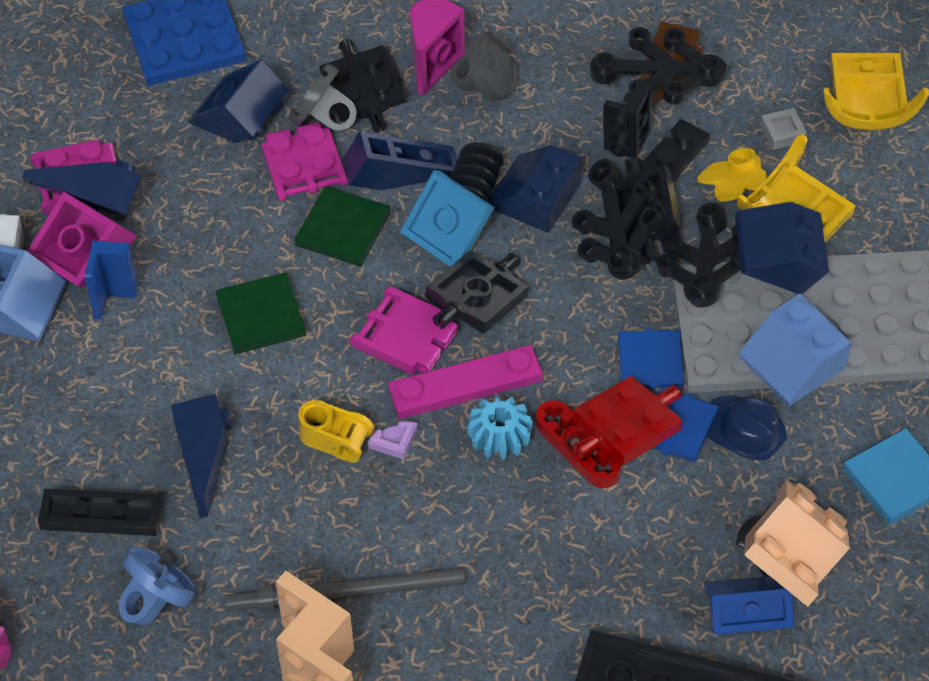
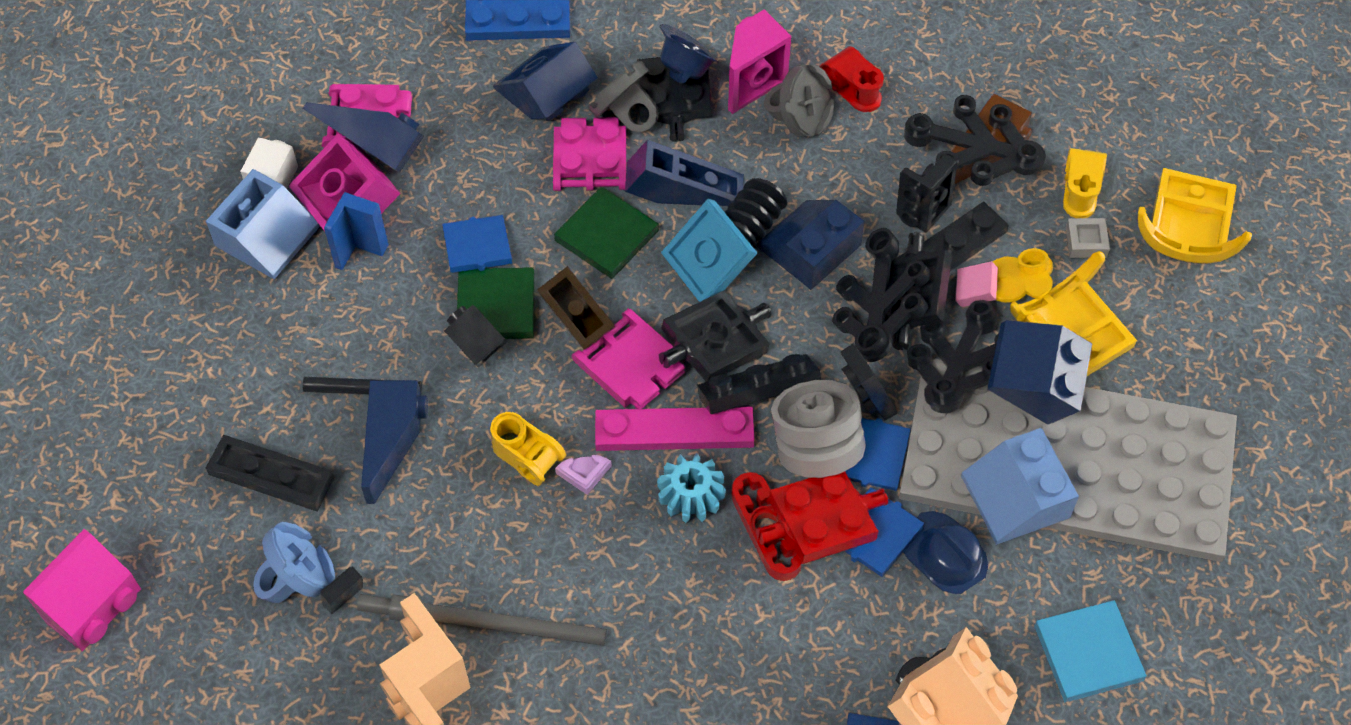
camera: 15 degrees right, 5 degrees up
(137, 420) = (339, 385): none -> black bar
(206, 595) = (341, 589): none -> black tile
(224, 264) = (477, 243): none -> blue piece
(253, 342) = (474, 334): none -> black brick
(340, 296) = (575, 308): none -> dark brown slope
(367, 52) = (684, 55): none -> dark blue piece
(529, 38) = (855, 79): none -> red piece
(530, 323) = (756, 383): none -> black plate
(600, 345) = (818, 428): none -> light grey wheel
(633, 294) = (866, 383): none -> black plate
(697, 191) = (976, 283): none -> bright pink tile
(763, 81) = (1083, 181): none -> yellow piece

